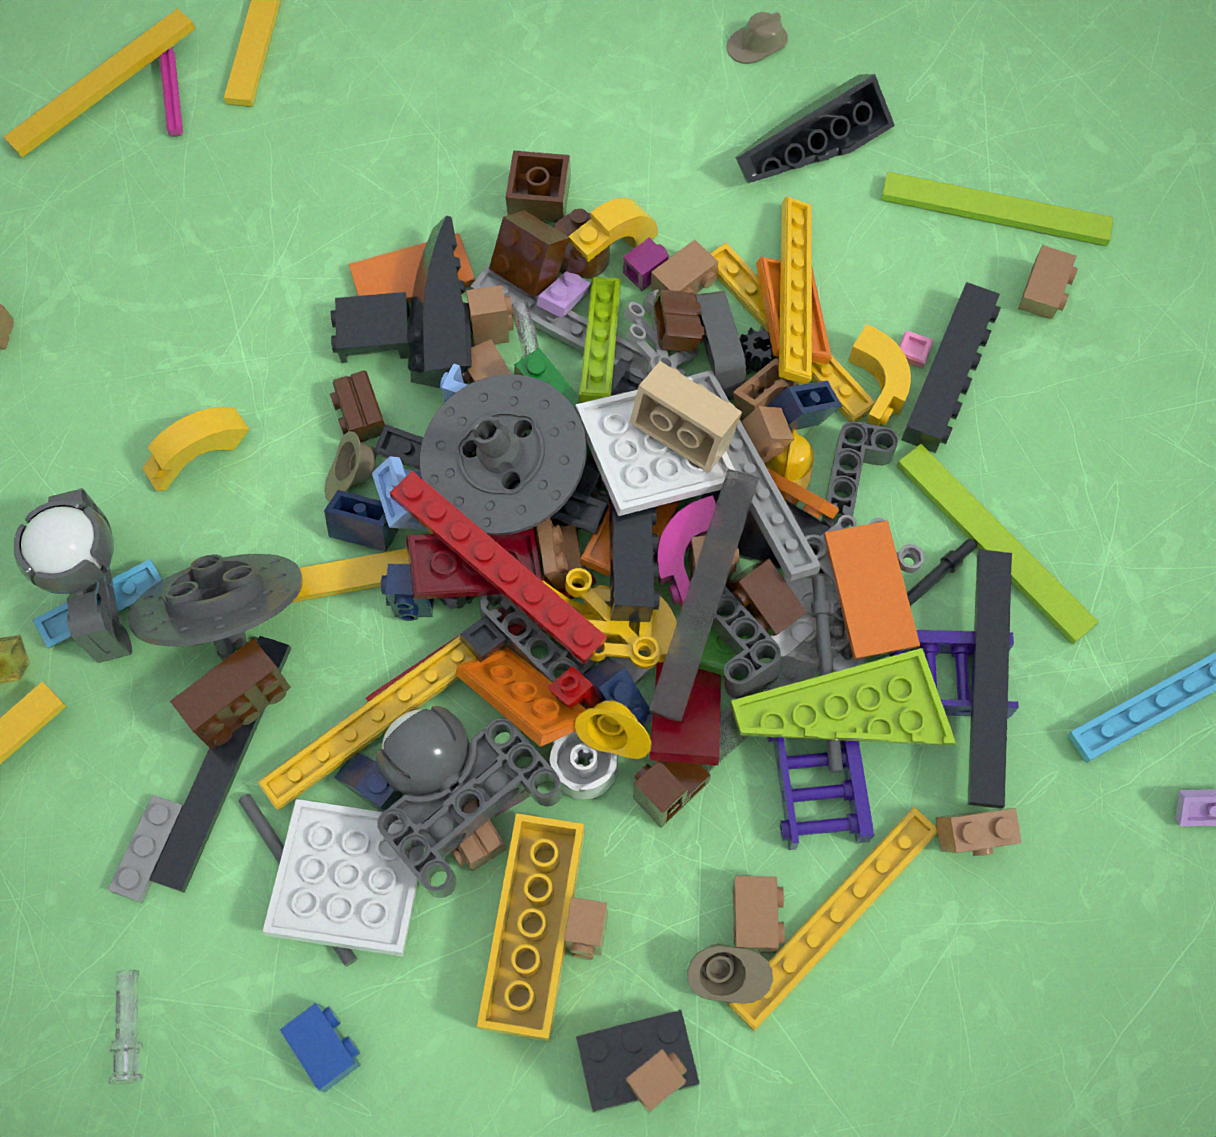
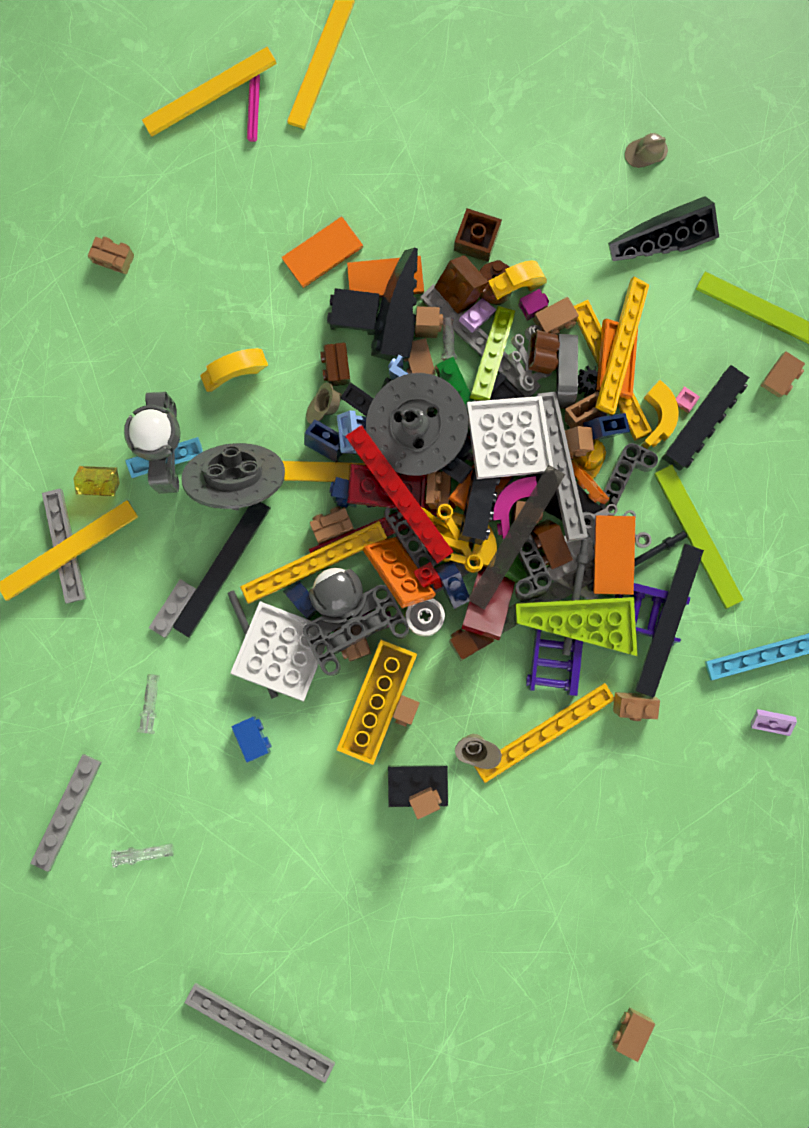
camera: 15 degrees right, 15 degrees up
(231, 694) = (233, 534): reddish brown brick -> none
(307, 259) = (322, 252): none -> orange tile
(396, 649) = (331, 525): none -> medium nougat brick
(483, 638) = (382, 532): black plate -> none
(613, 730) = (446, 606): yellow piece -> none
(684, 416) = (530, 427): tan brick -> none
(756, 913) = (501, 723): medium nougat brick -> none

